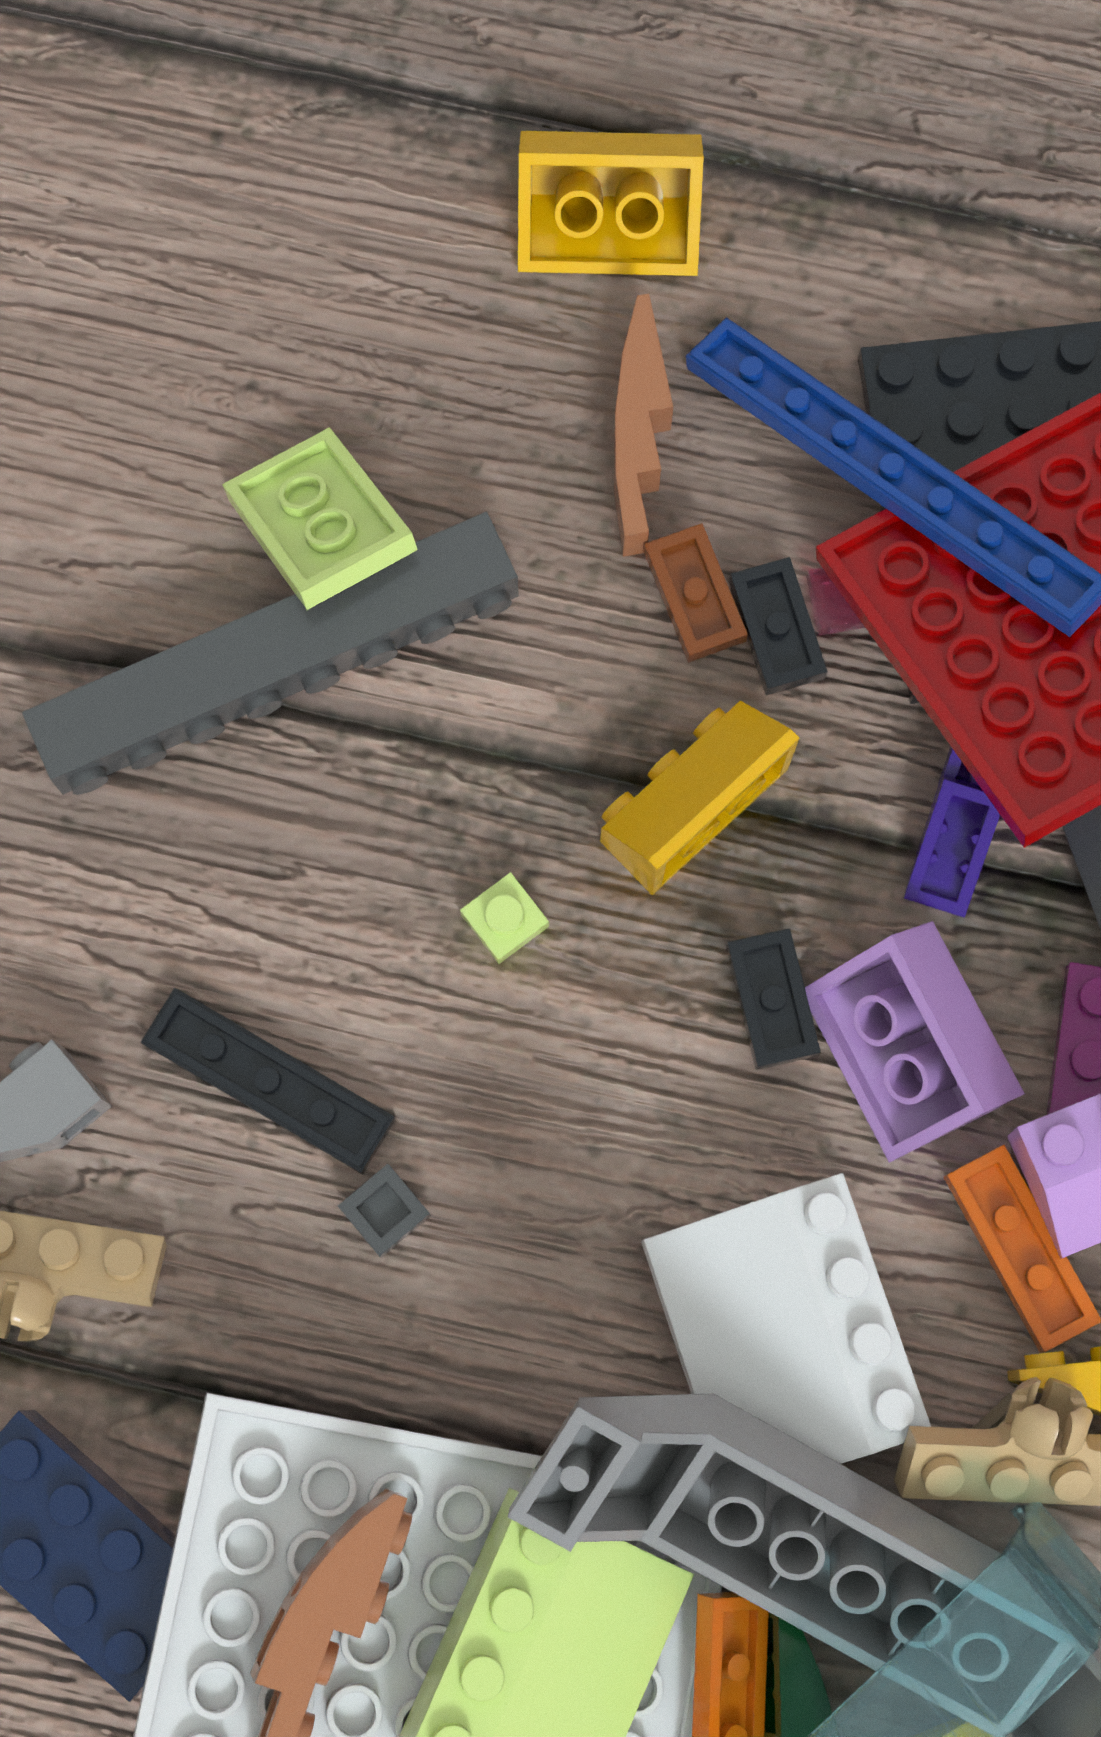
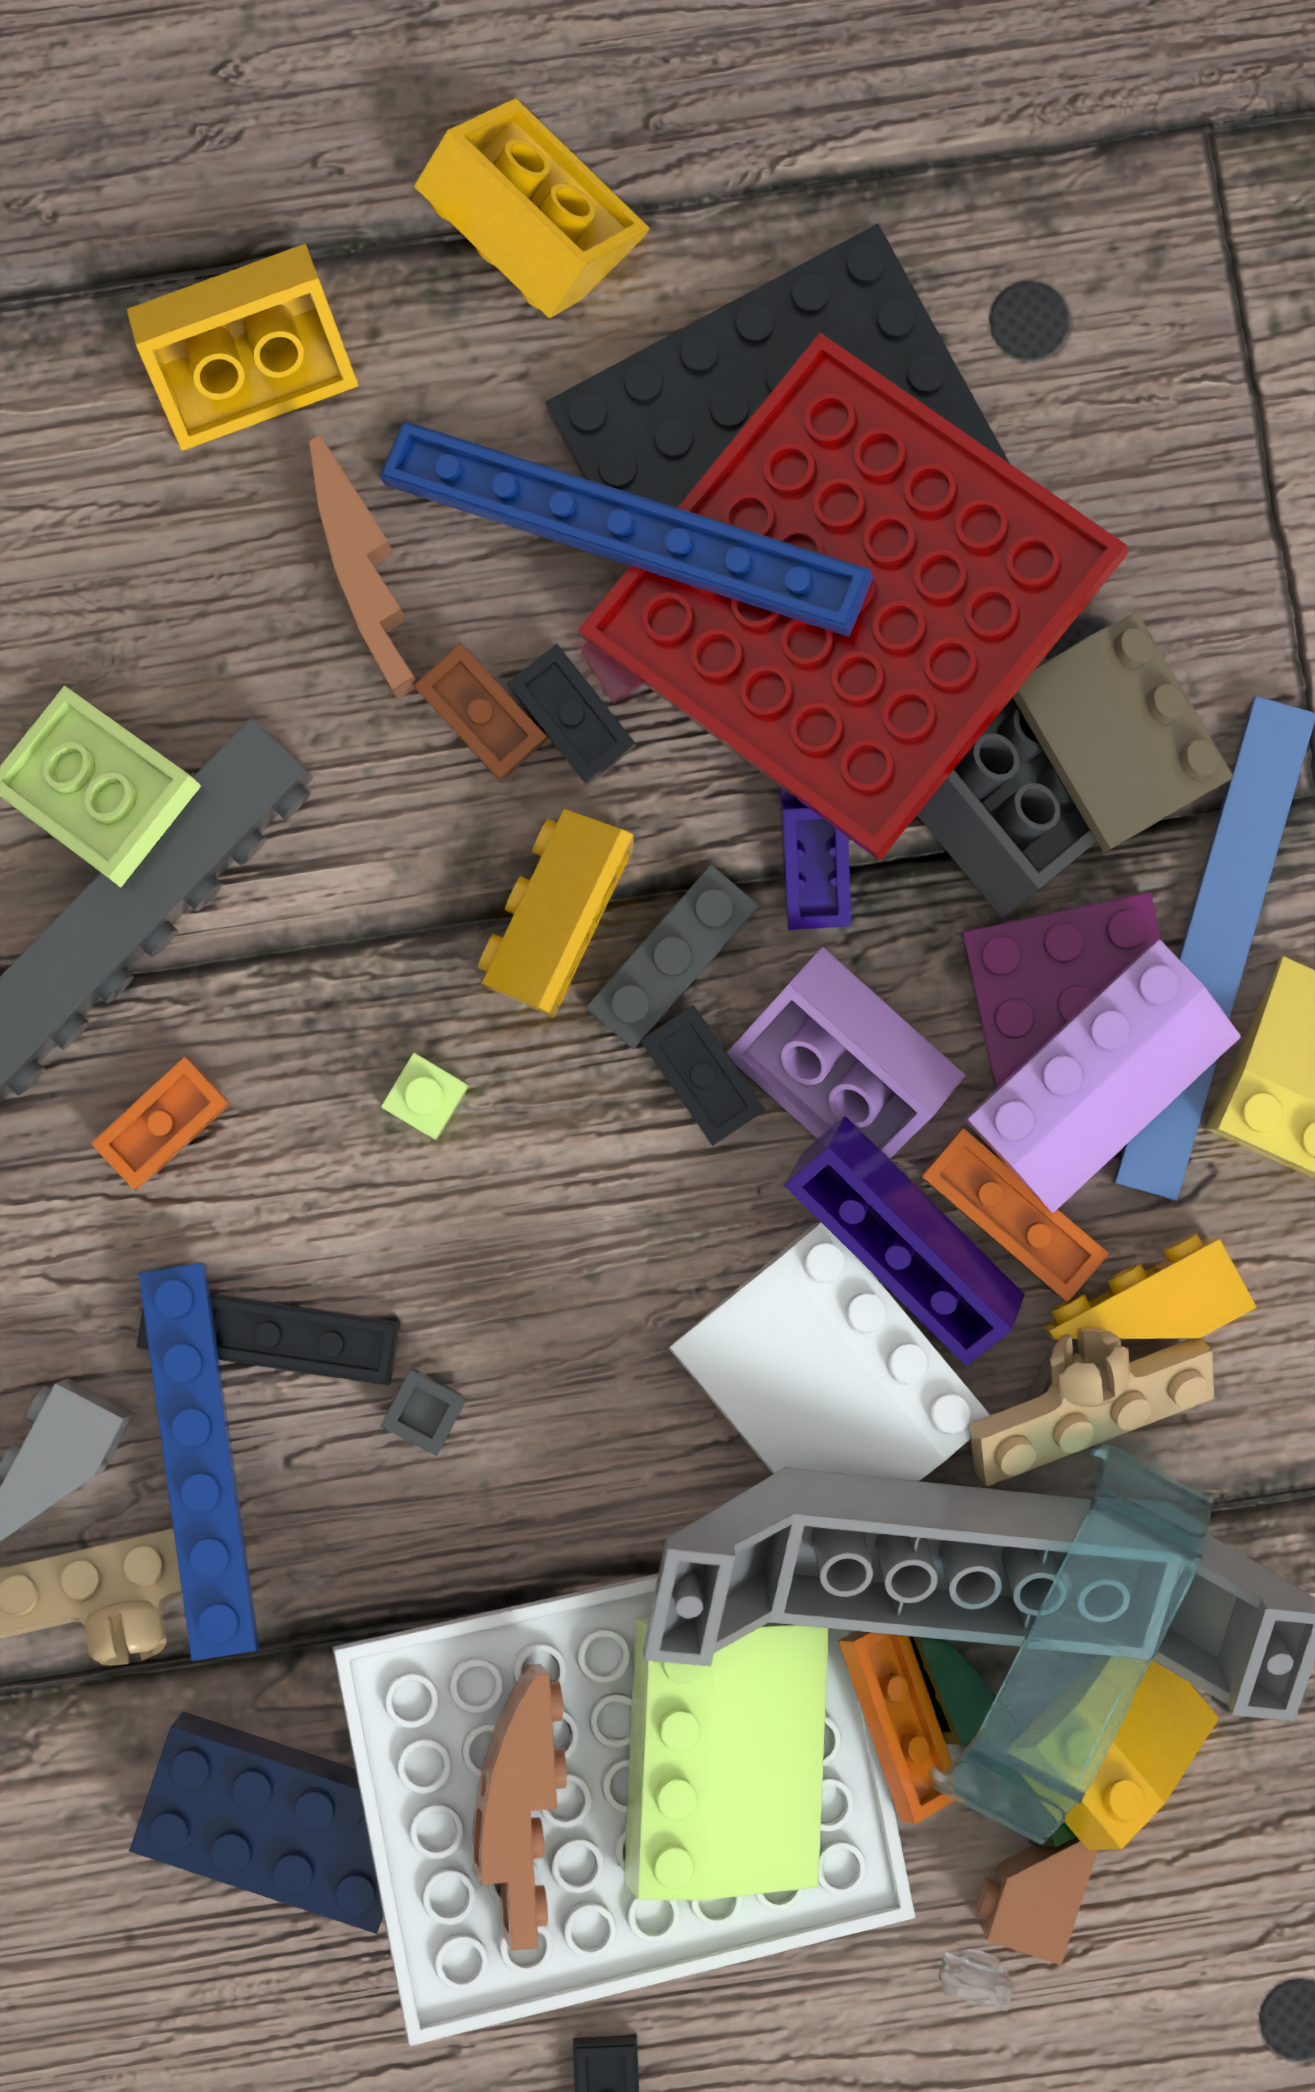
camera: 25 degrees left, 10 degrees up
(152, 1172) = (198, 1462): none -> blue plate
(251, 845) = (161, 1123): none -> orange plate
(785, 880) = (672, 957): none -> dark grey plate
(910, 179) = (529, 206): none -> yellow slope
(911, 1228) = (905, 1241): none -> dark purple brick

